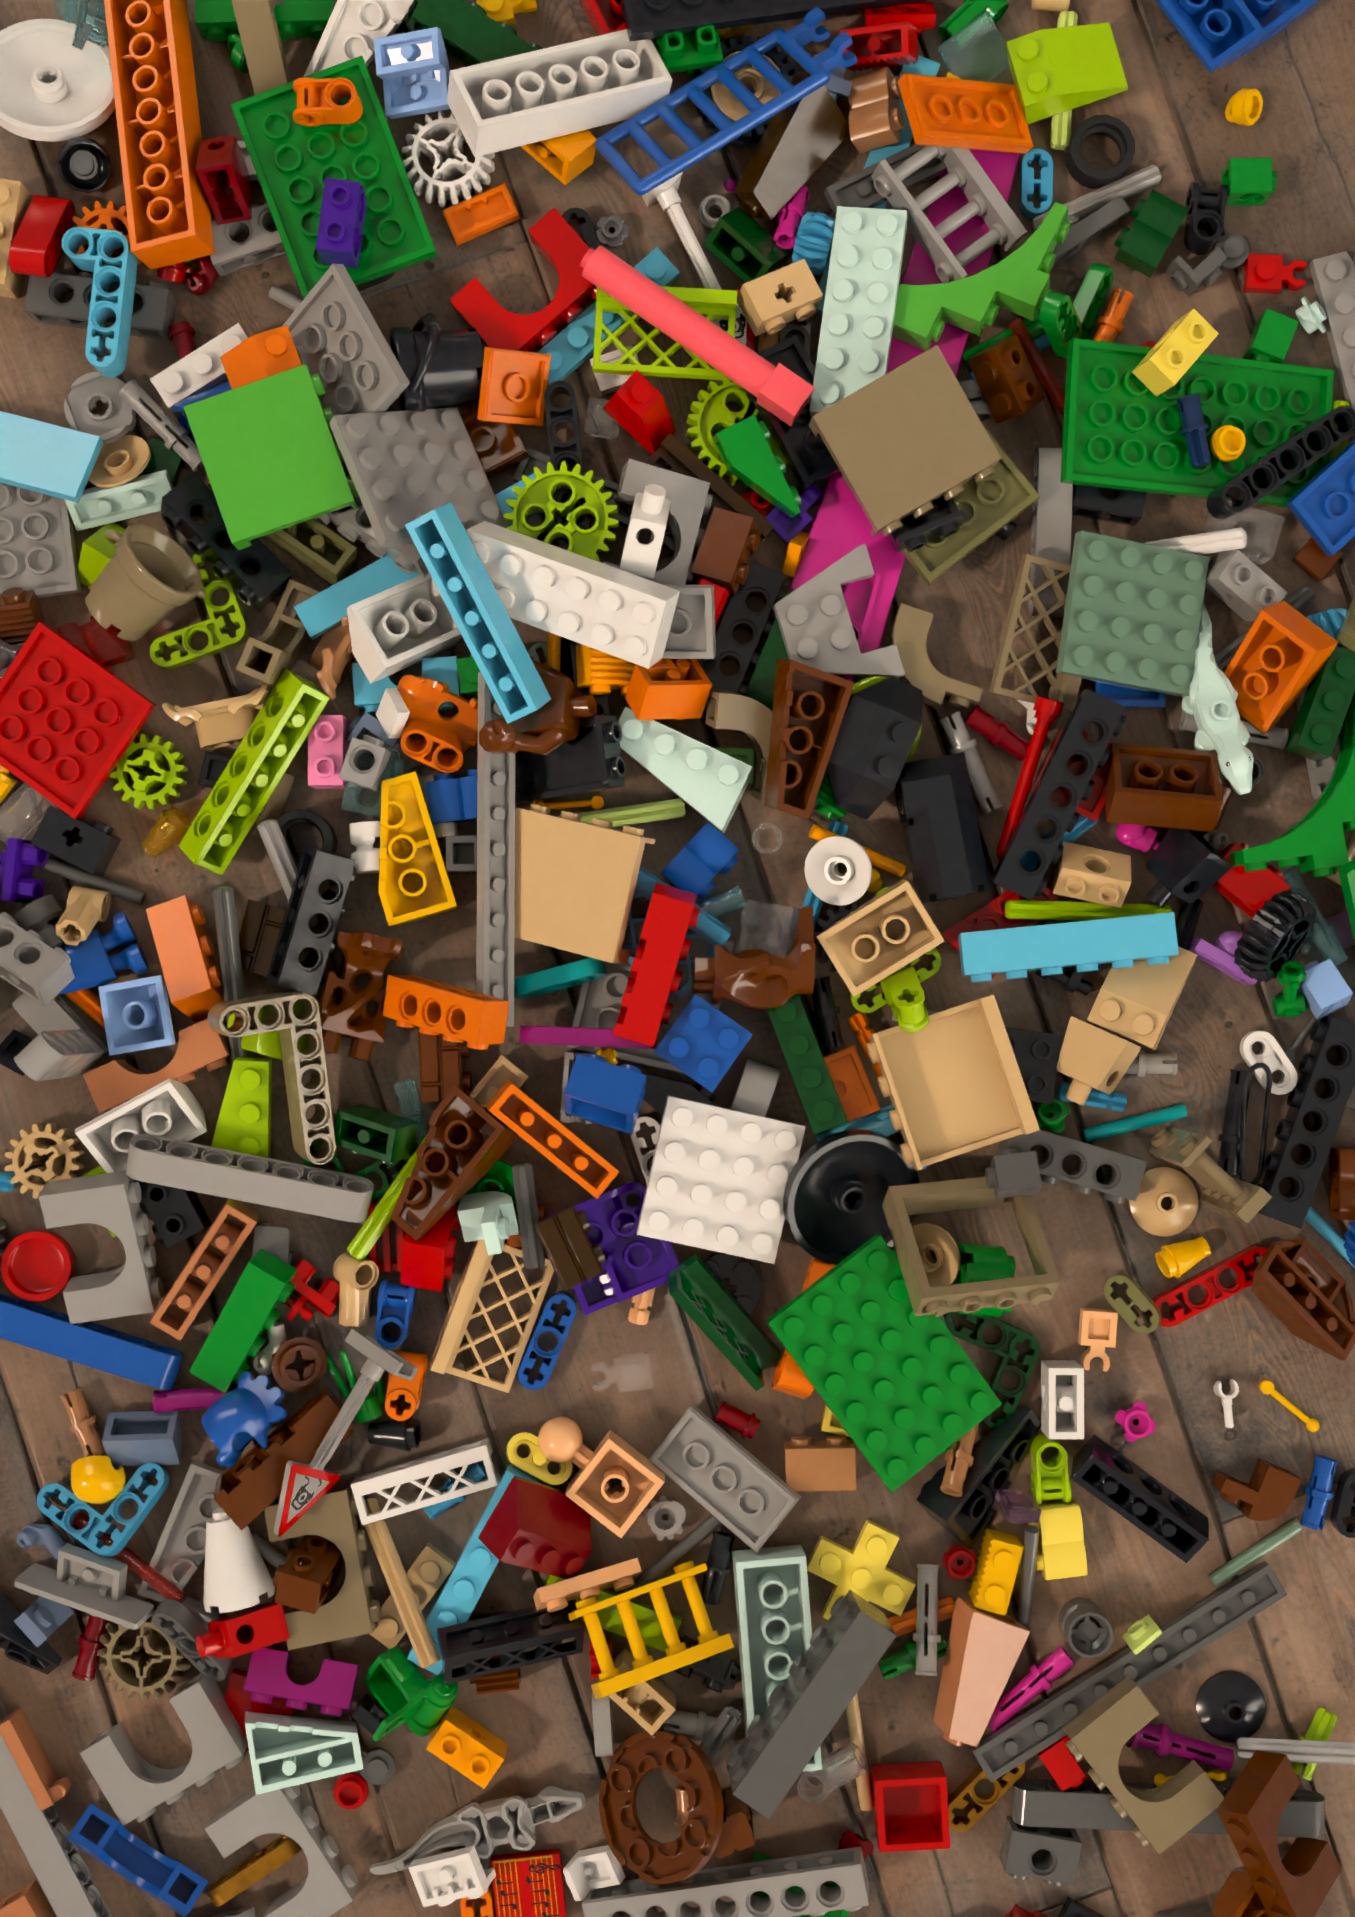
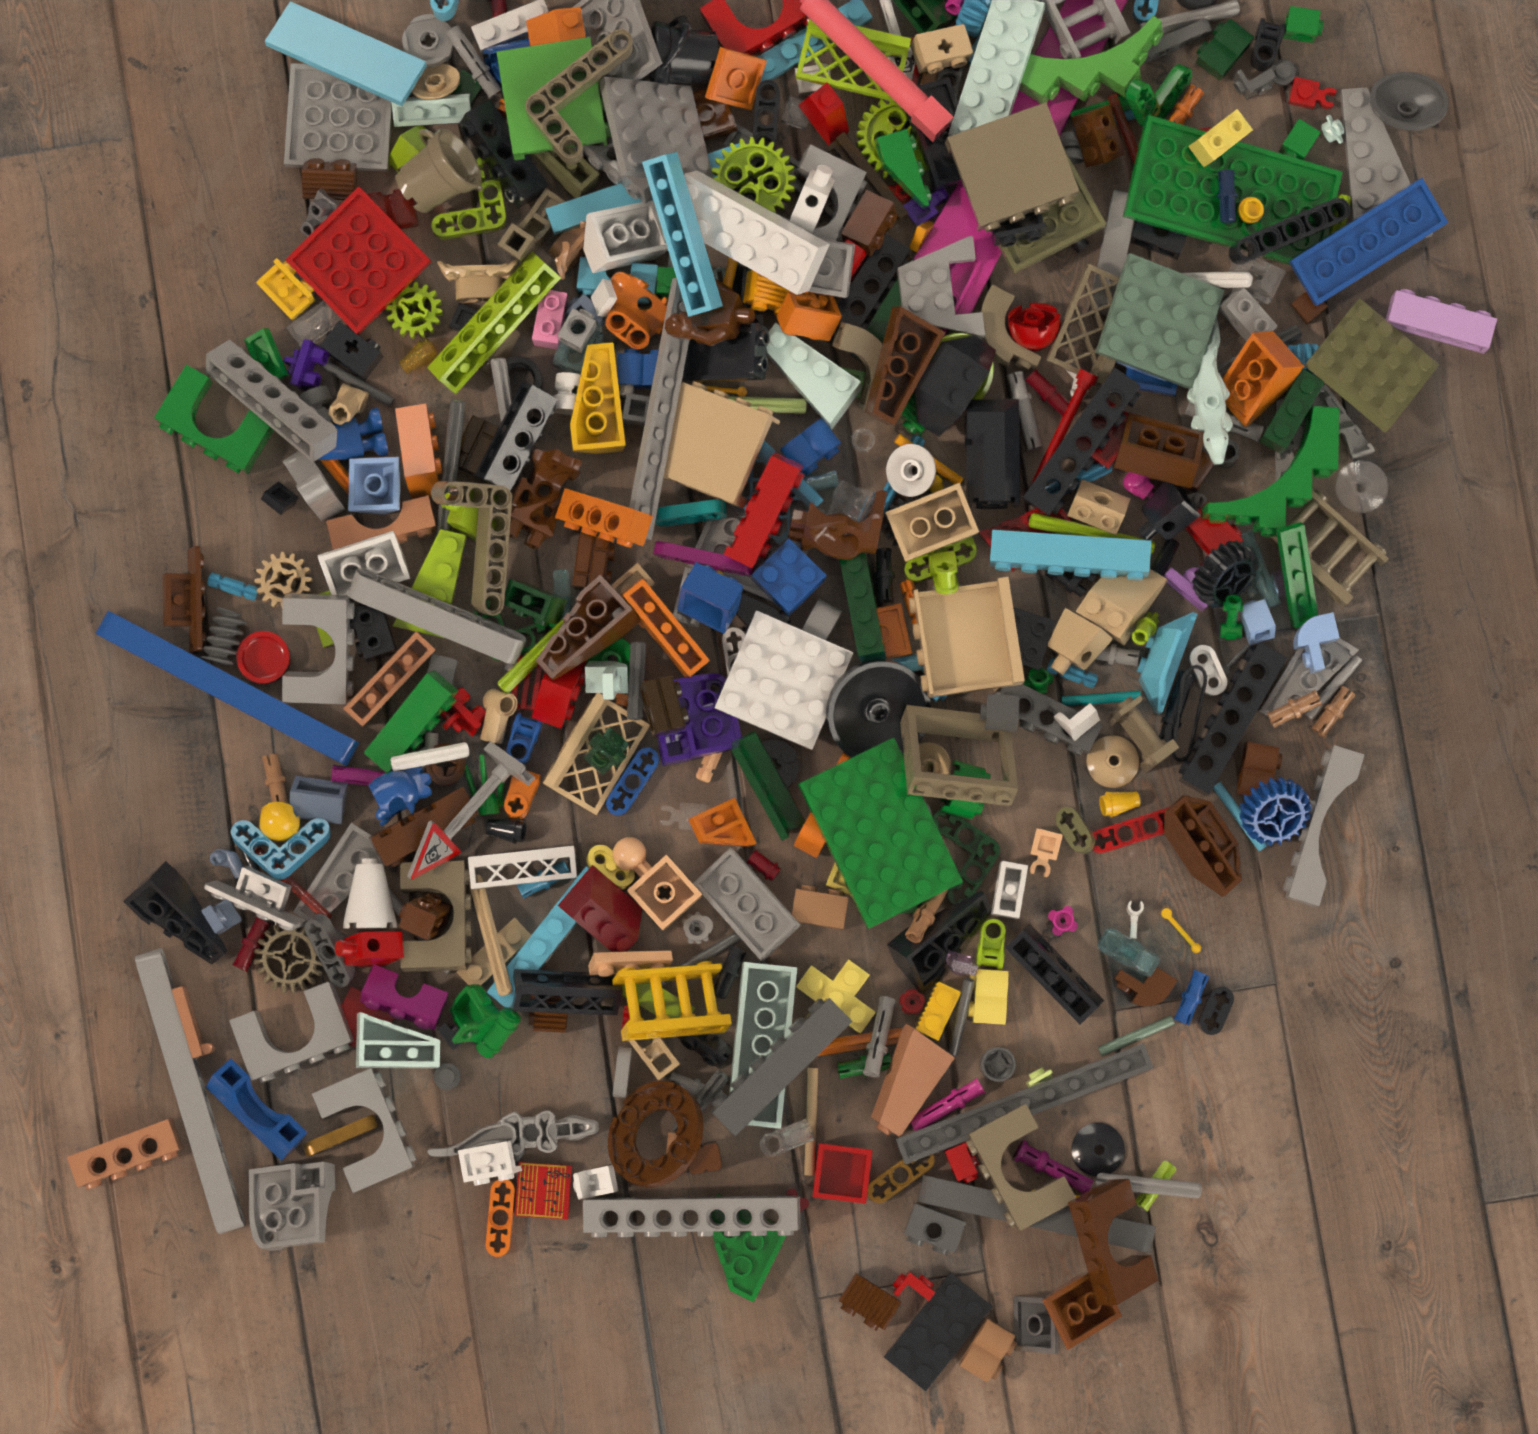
camera: 10 degrees right, 5 degrees down
(275, 1364) = (430, 756): none -> white axle
(296, 440) = (573, 90): none -> dark tan beam
(351, 1790) = (423, 1091): red plate -> none
(467, 1747) = (517, 1071): light orange brick -> none
(505, 1314) = (606, 750): none -> clear green brick
(674, 1380) = (723, 826): none -> orange wing
(966, 648) = (1034, 326): none -> red cylinder
(1119, 1170) = (1080, 722): none -> white tile
(1181, 1025) = (1145, 628): none -> lime axle
(1209, 1059) = (1163, 660): none -> medium azure wedge
(1236, 1459) = (1129, 952): none -> clear light blue brick

